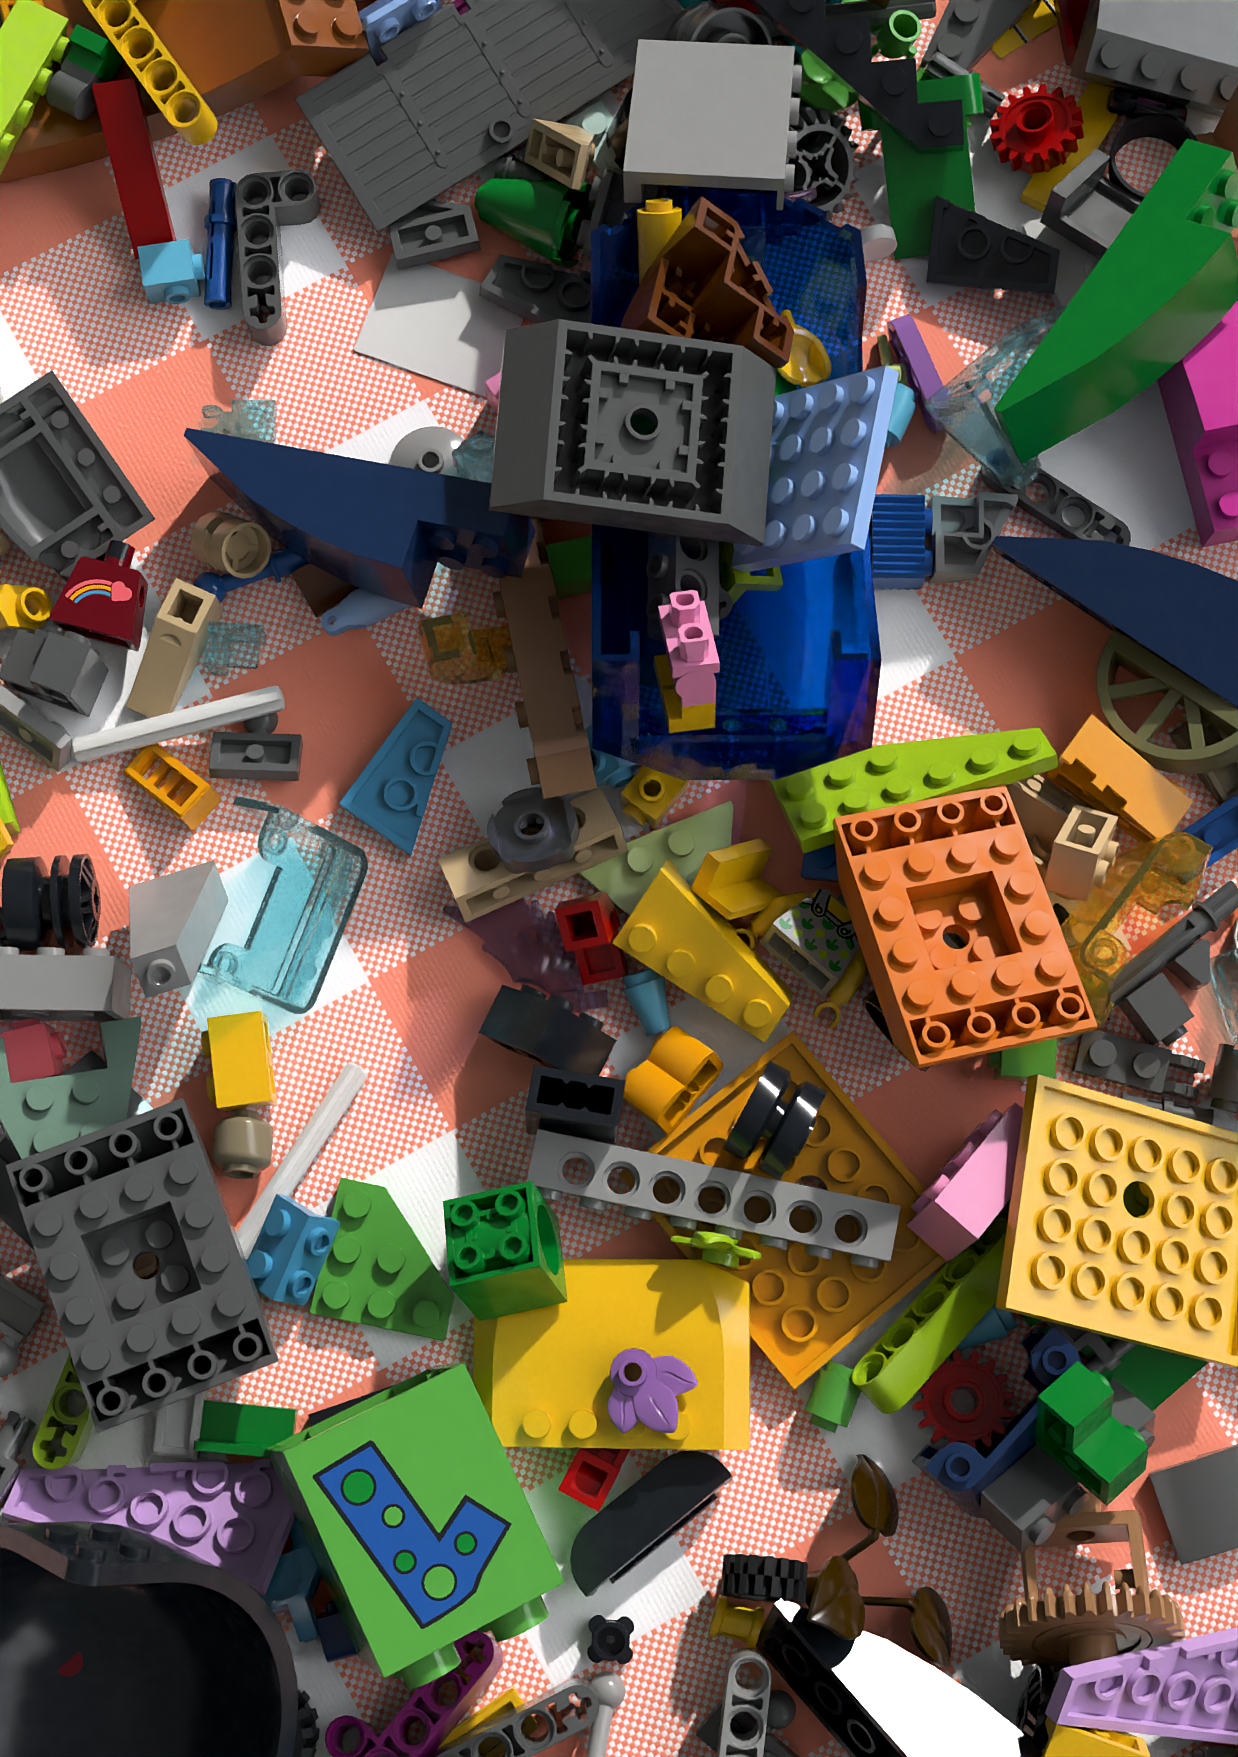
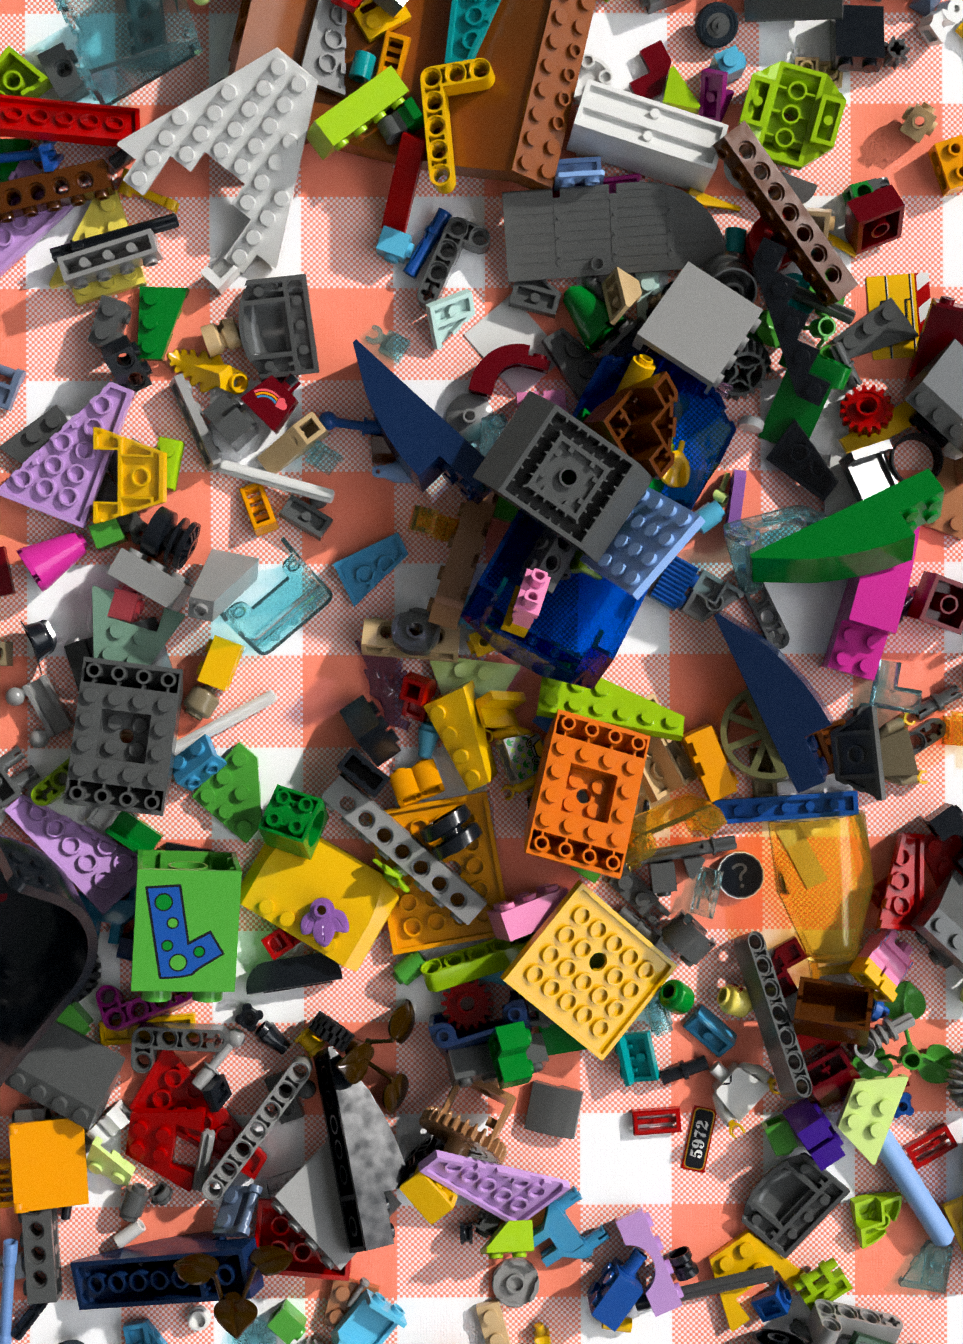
camera: 30 degrees right, 10 degrees up
(231, 544) = (348, 406): tan wheel -> none
(313, 329) = (448, 315): none -> light aqua wing
(435, 350) = (500, 360): none -> dark red arch
(668, 1651) = (271, 1037): none -> black cone
(1082, 854) = (668, 787): tan brick -> none

